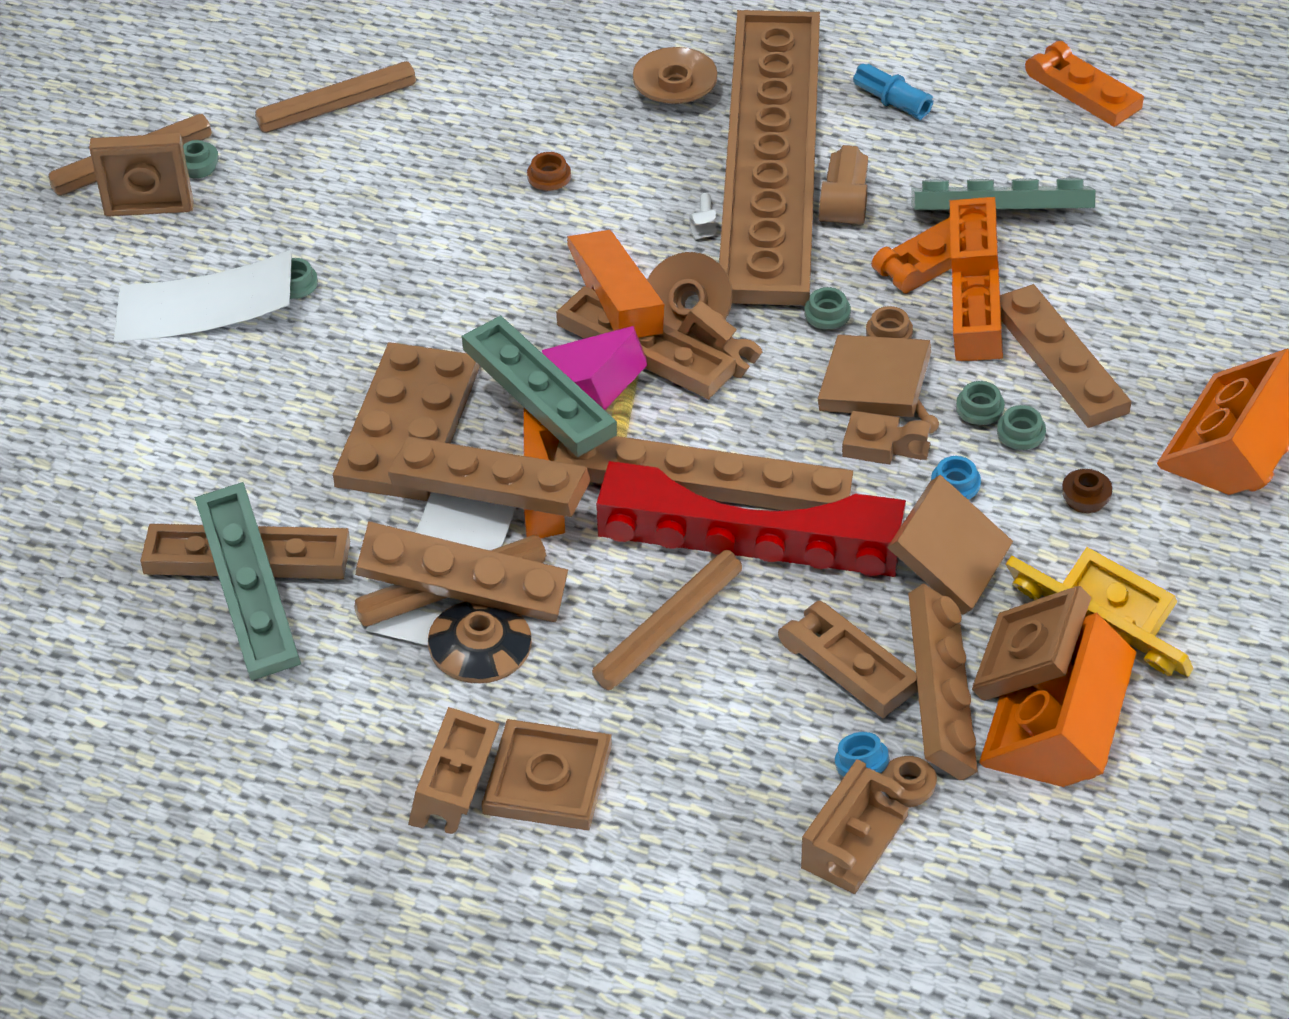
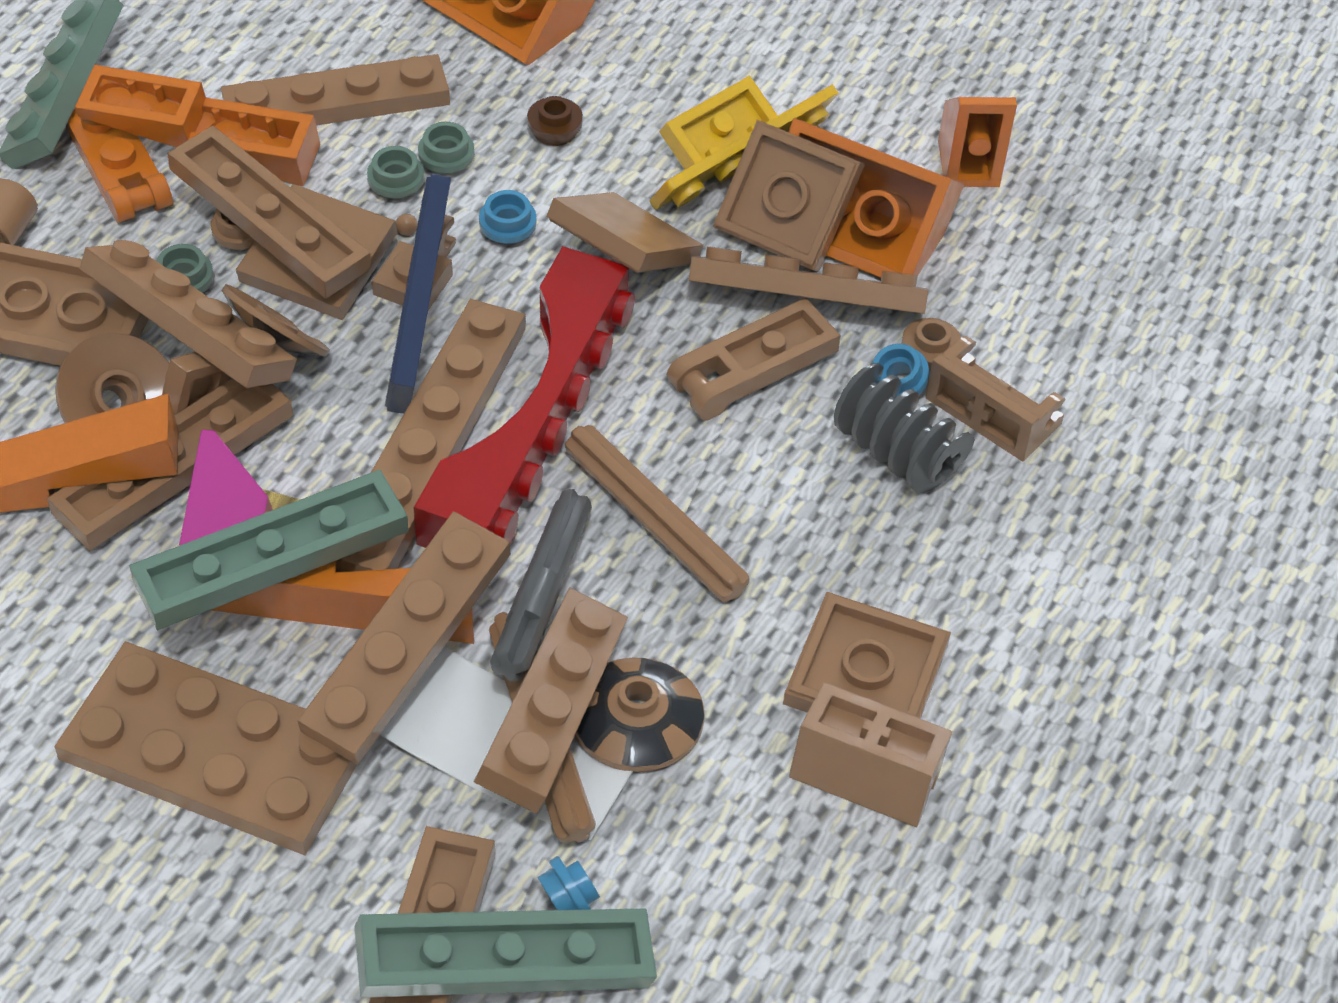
camera: 85 degrees left, 5 degrees up
(311, 615) = (568, 886): none -> dark azure plate
(570, 552) = (540, 586): none -> dark grey axle
(754, 304) = (188, 314): none -> medium nougat plate
(777, 357) = (265, 318): none -> medium nougat dish
(786, 755) = (897, 433): none -> dark grey piece
(829, 424) = (417, 294): none -> dark blue tile
(881, 327) = (269, 211): none -> medium nougat plate
(1171, 773) = (976, 139): none -> orange slope

